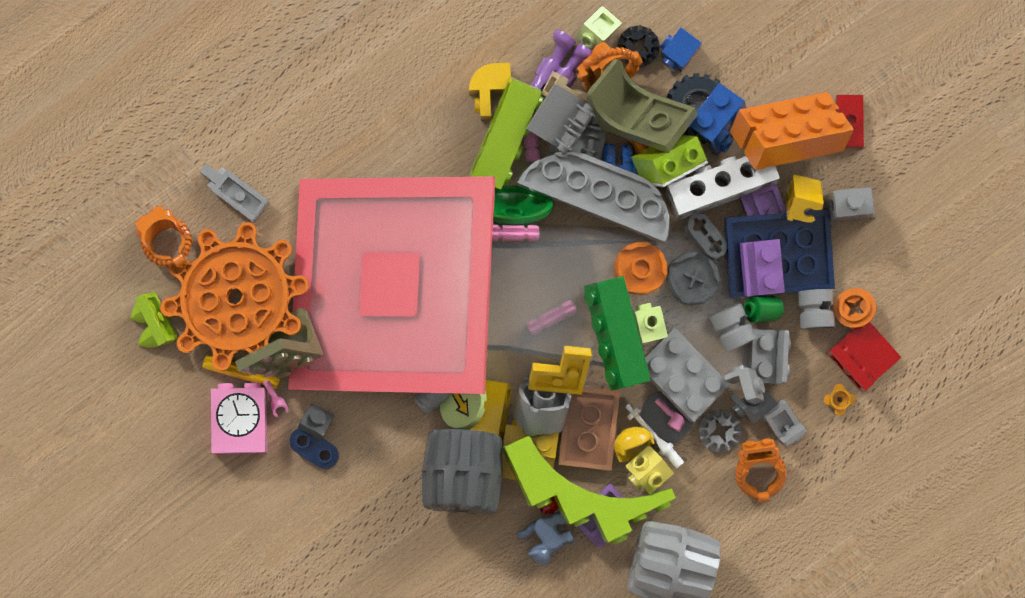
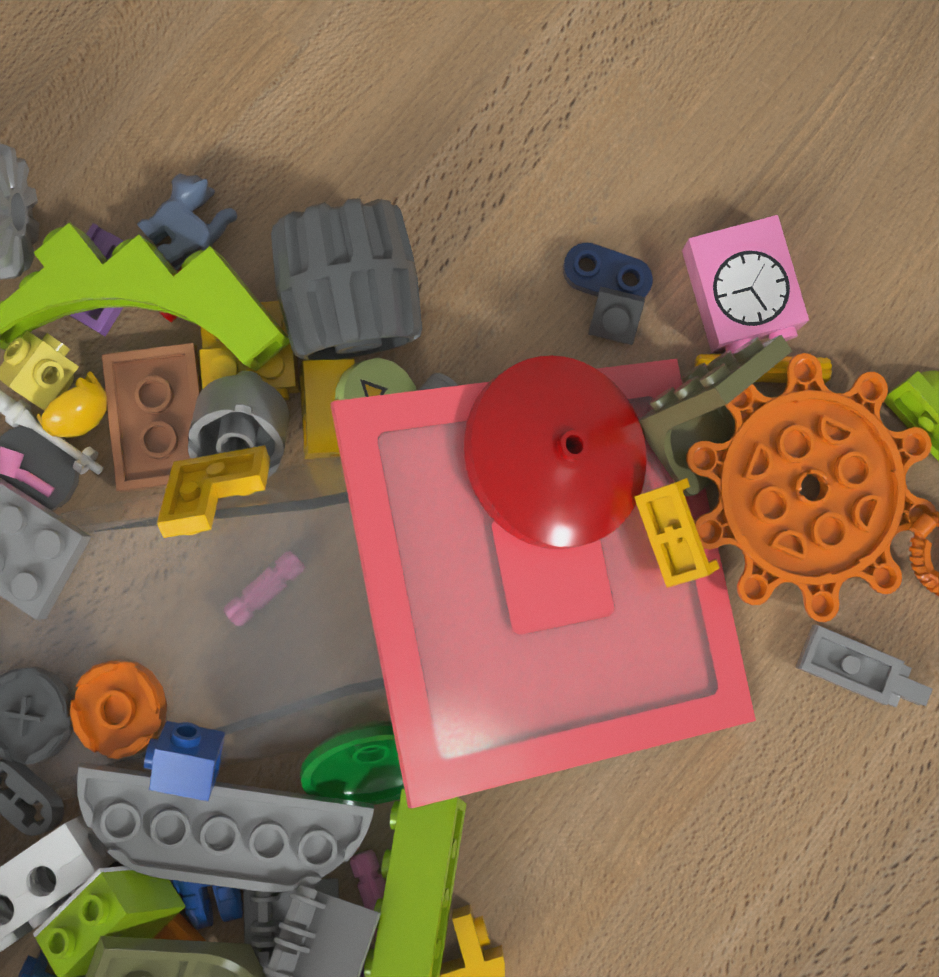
camera: 165 degrees right, 0 degrees up
(275, 400) = (691, 333): bright pink hand -> none
(319, 287) = (674, 534): none -> yellow hinge
(371, 346) = (555, 452): none -> red dish
(515, 233) = (348, 715): bright pink axle -> none
(608, 231) = (185, 760): none -> brick
(616, 333) = (127, 579): green brick -> none
(650, 323) = (80, 611): yellowish green brick -> none

